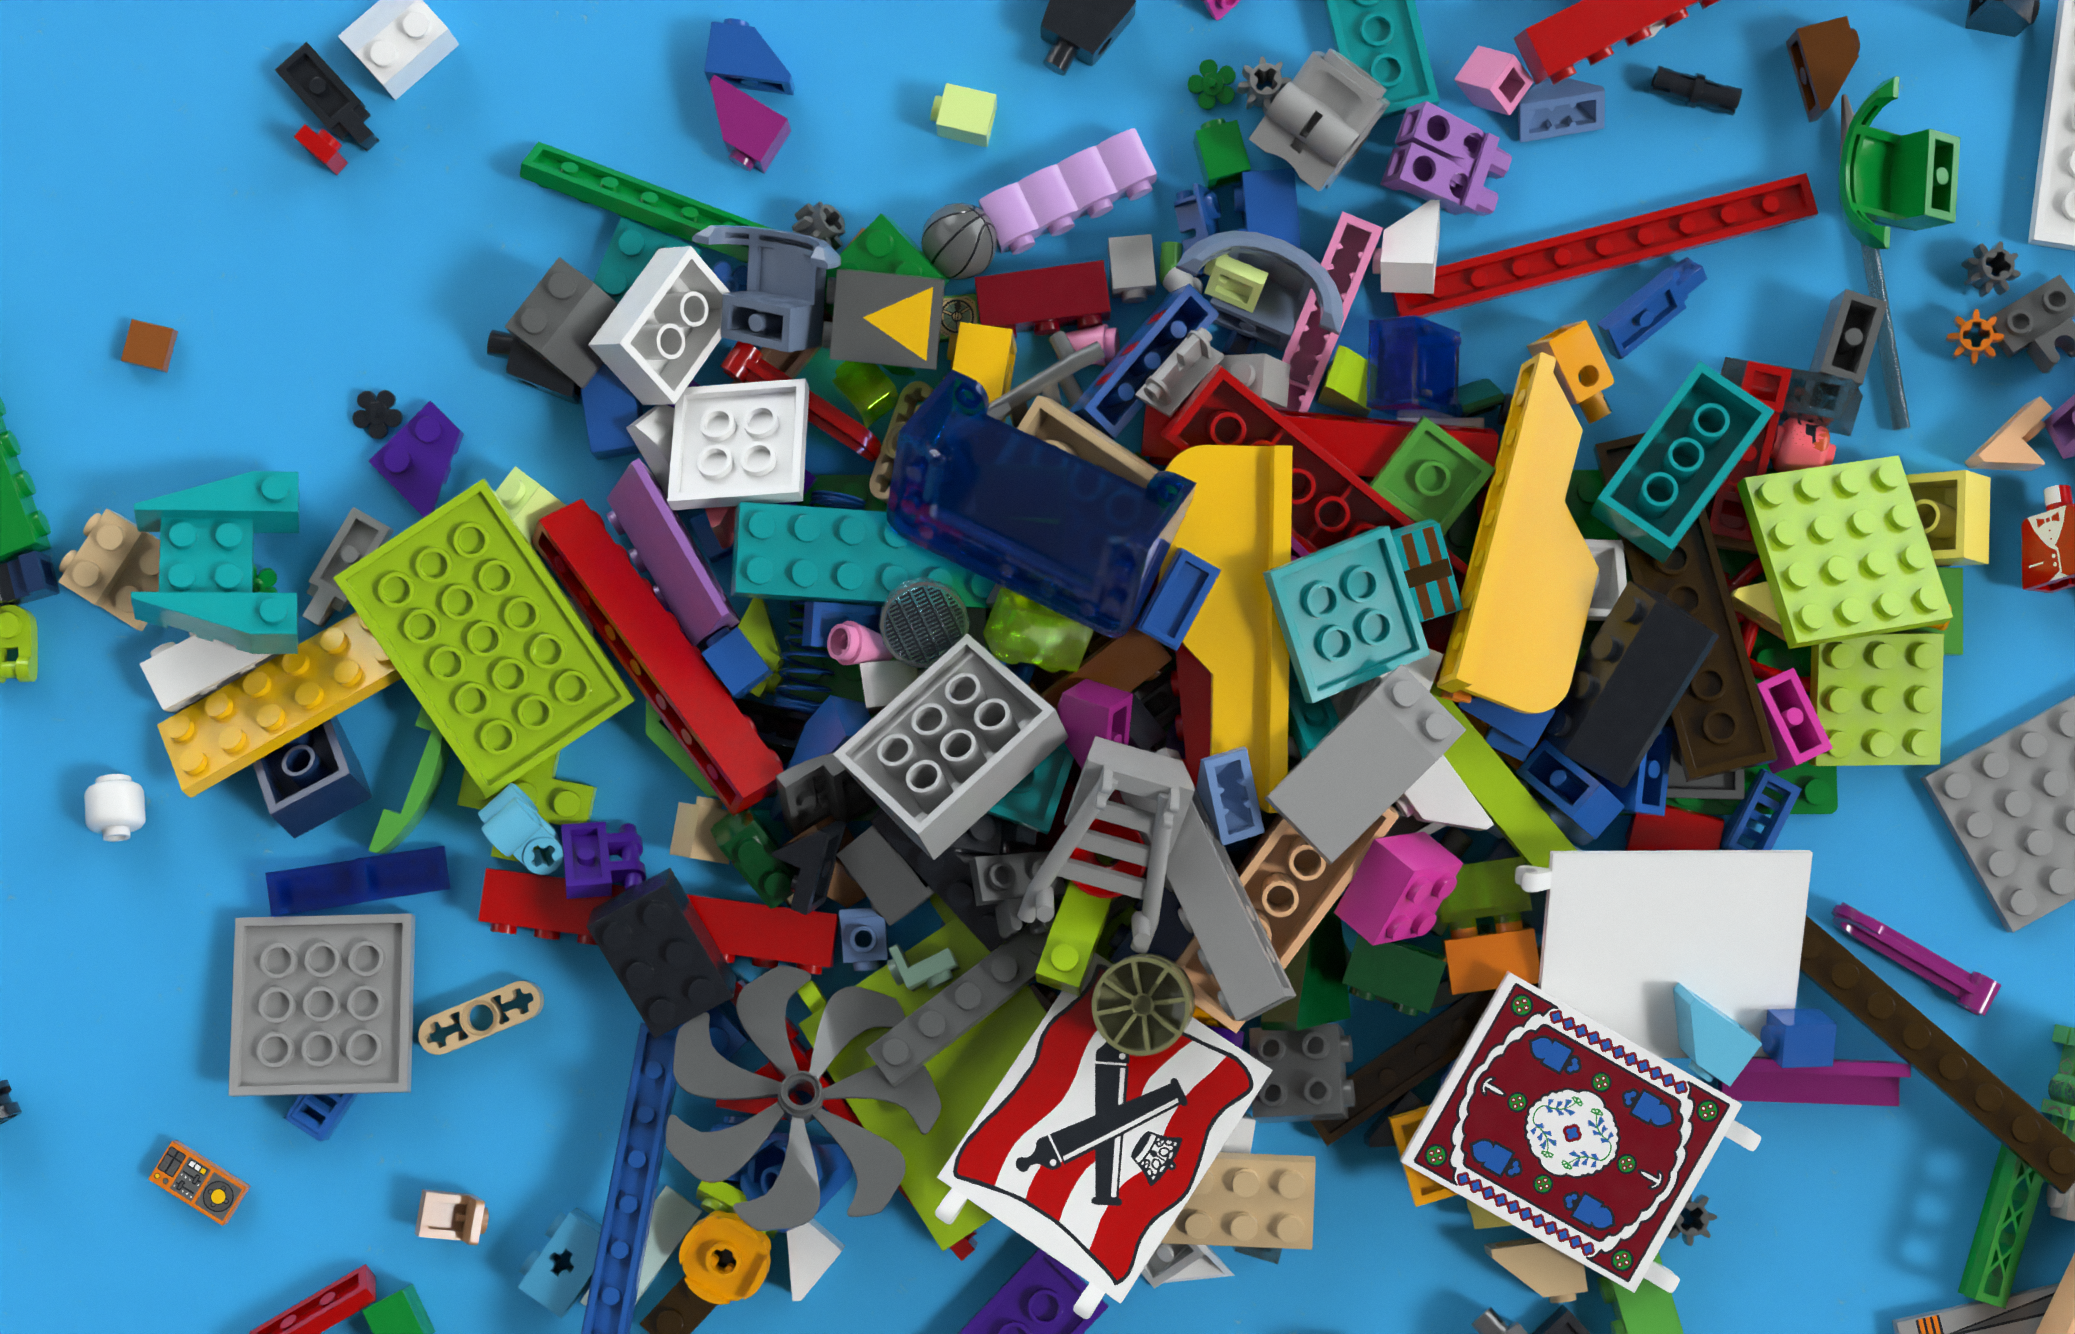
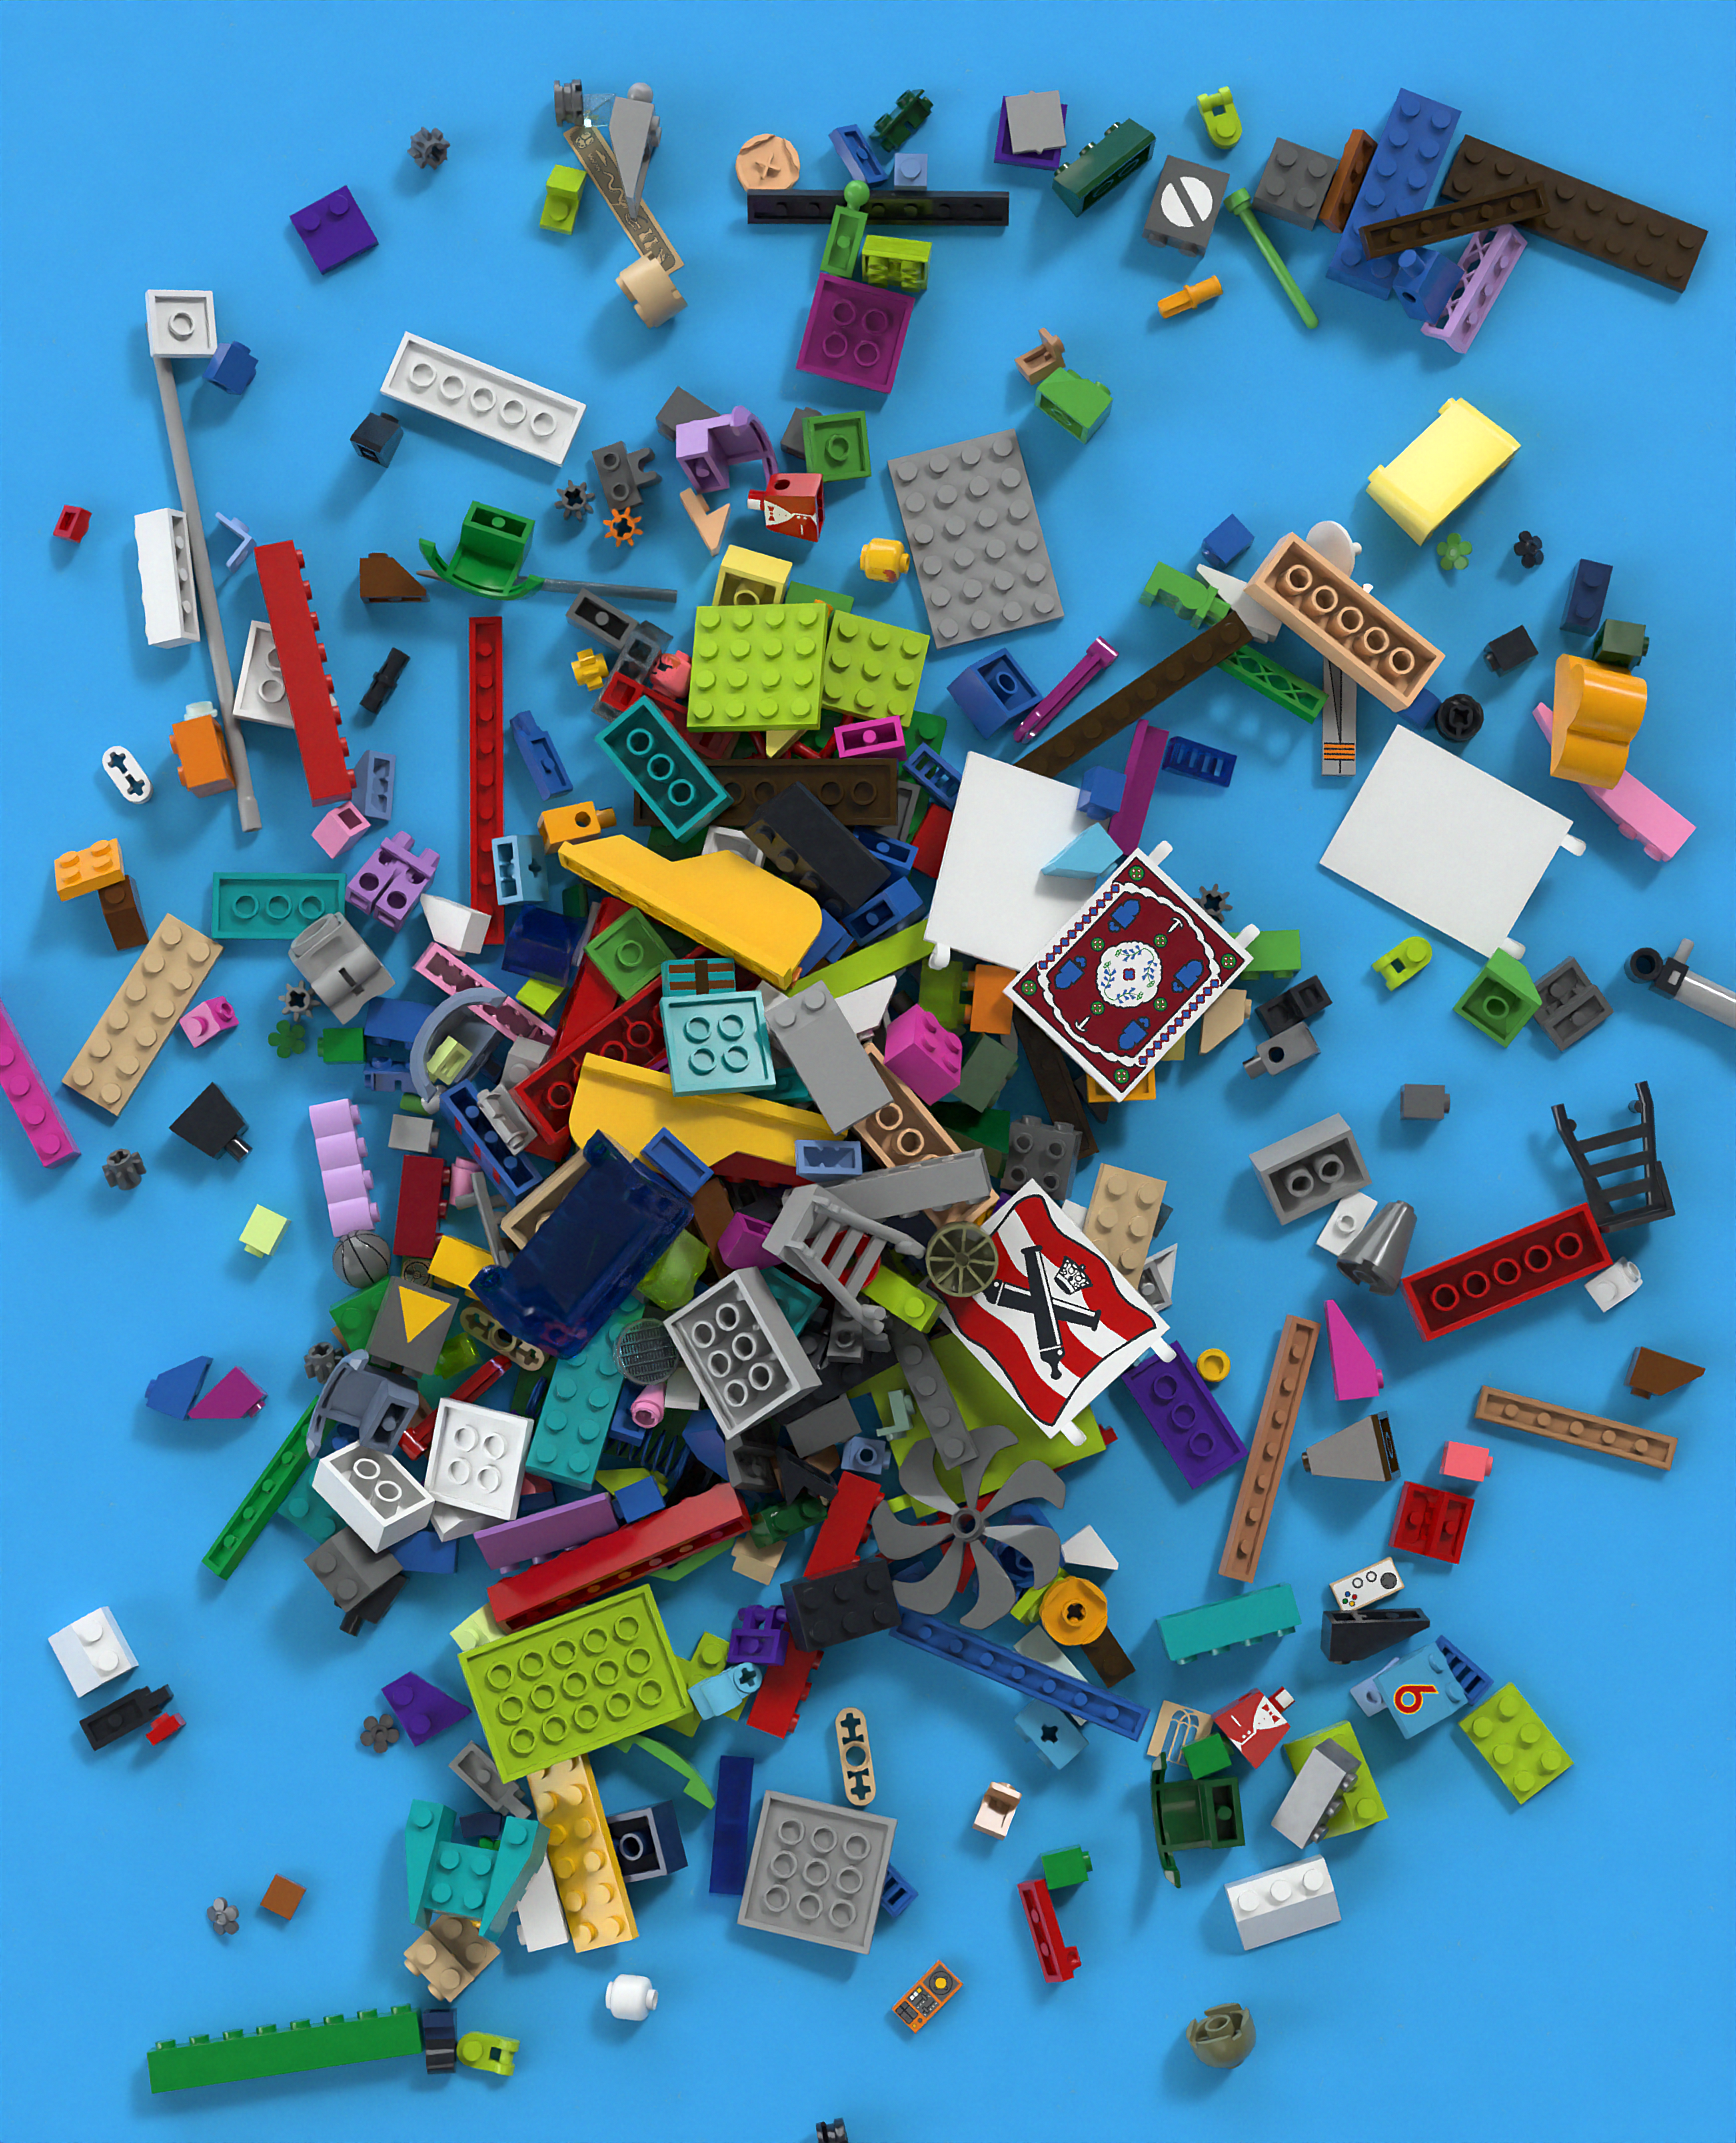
camera: 75 degrees left, 0 degrees up
(107, 278) = (224, 1916): none -> dark grey plant
(291, 566) = (481, 1824): none -> dark blue piece
(1501, 316) = (520, 870): none -> dark azure brick
(1780, 341) = (590, 669): none -> yellow gear
(1854, 1120) = (1171, 756): none -> clear blue slope
(1888, 865) = (994, 693): none -> blue slope
(2023, 681) = (884, 560): none -> yellow head

